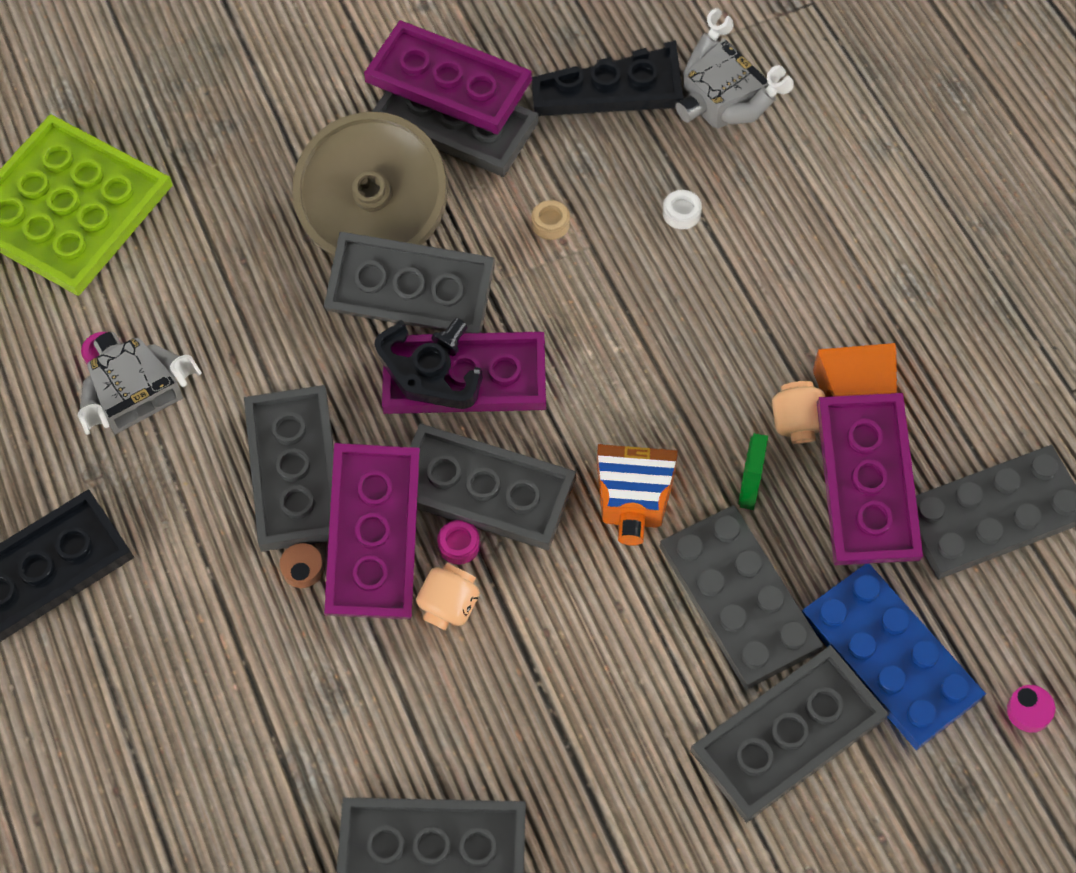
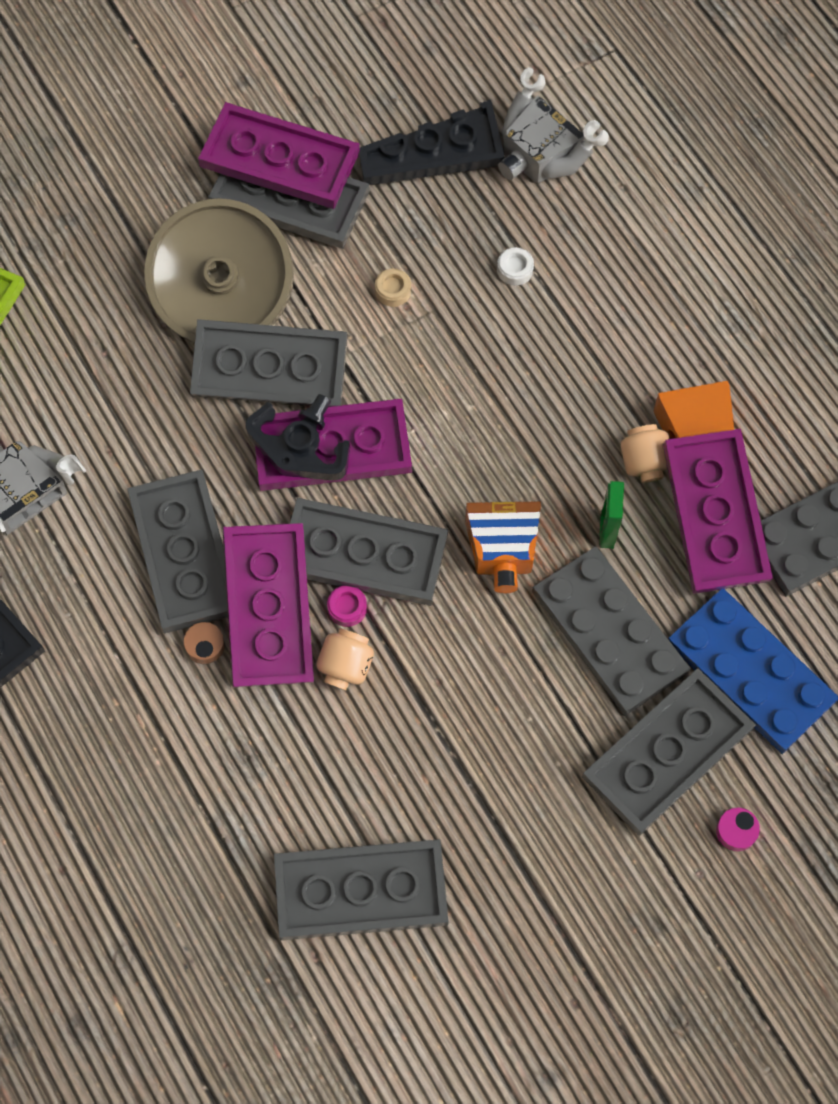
camera: 10 degrees left, 5 degrees up
(857, 827) = (738, 829): none -> dark pink tile

